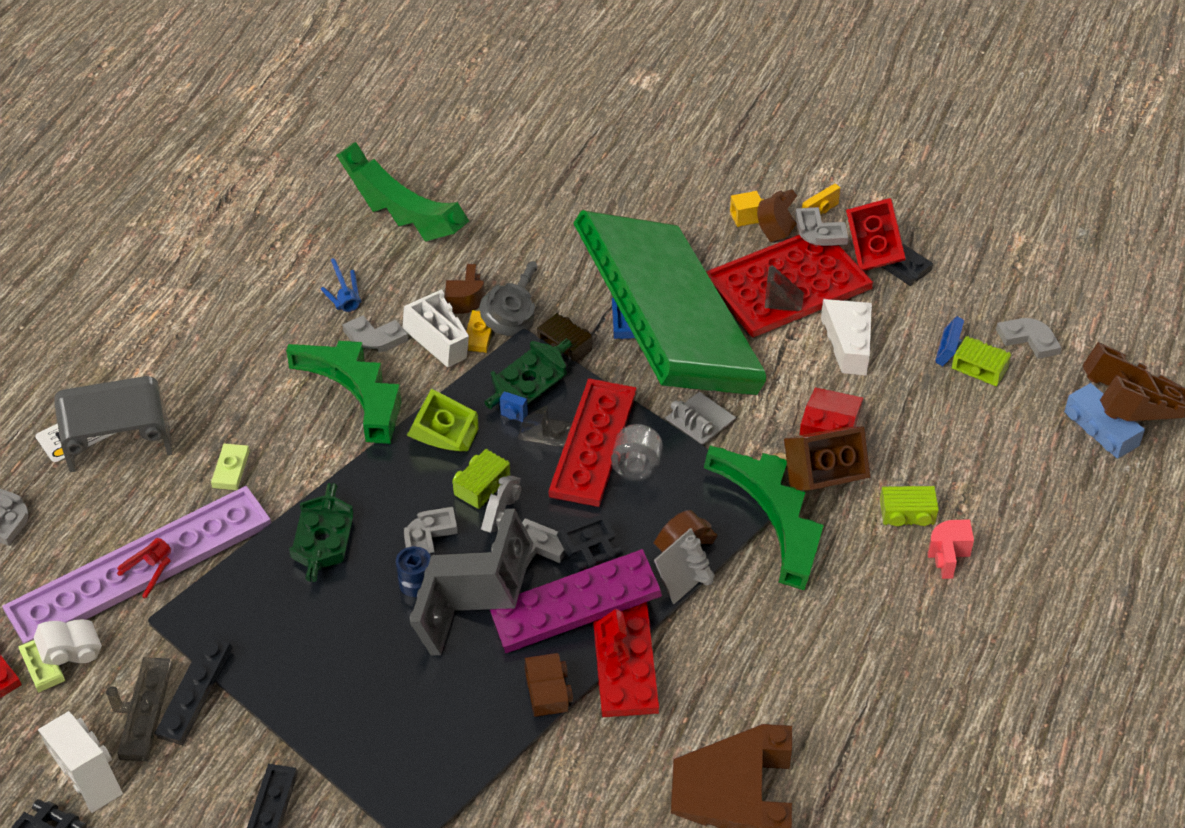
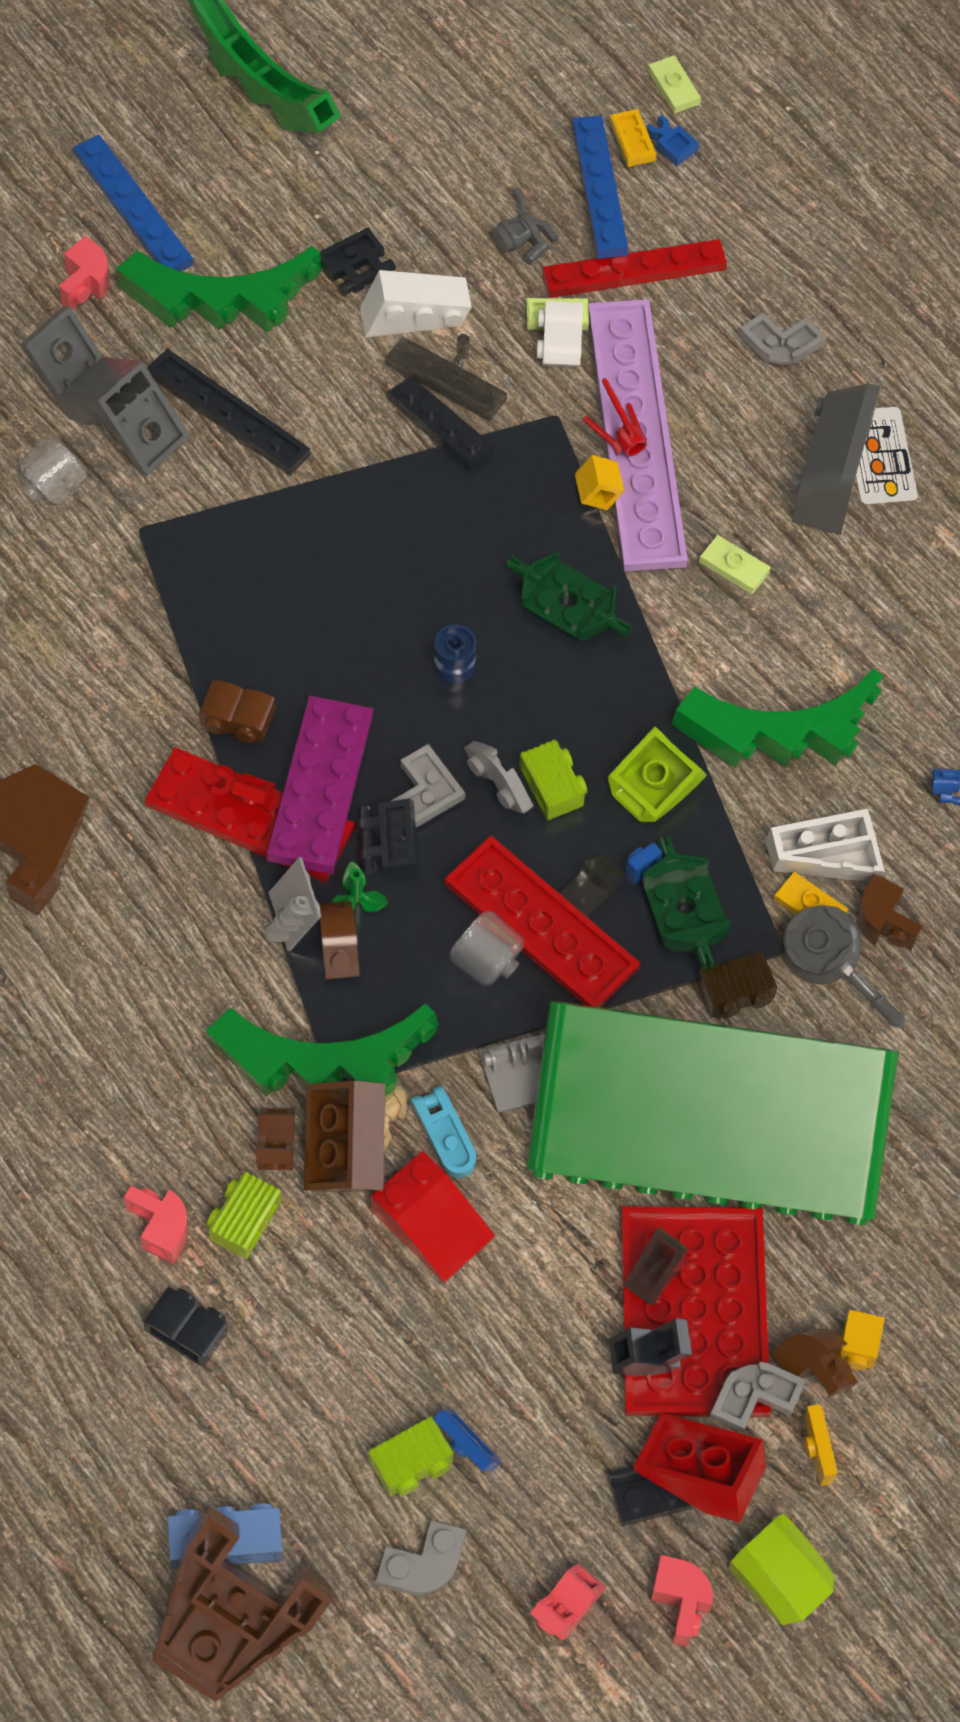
camera: 115 degrees right, 15 degrees up
(204, 559) = (599, 482): none -> yellow brick
(381, 338) = (871, 779): light grey plate -> none
(430, 525) = (513, 690): light grey plate -> none
(471, 582) = (391, 684): dark grey bracket -> none
(640, 540) = (354, 882): none -> green plant
(770, 433) = (445, 1133): none -> medium azure plate
(832, 275) = (650, 1351): none -> black brick
(849, 331) = (548, 1320): white wedge -> none
(852, 511) = (275, 1139): none -> reddish brown brick
(905, 194) = (784, 1572): none -> lime slope
(950, 222) = (683, 1586): none -> coral brick
(997, 265) = (568, 1602): none -> coral brick
(1002, 499) = (186, 1326): none -> black brick

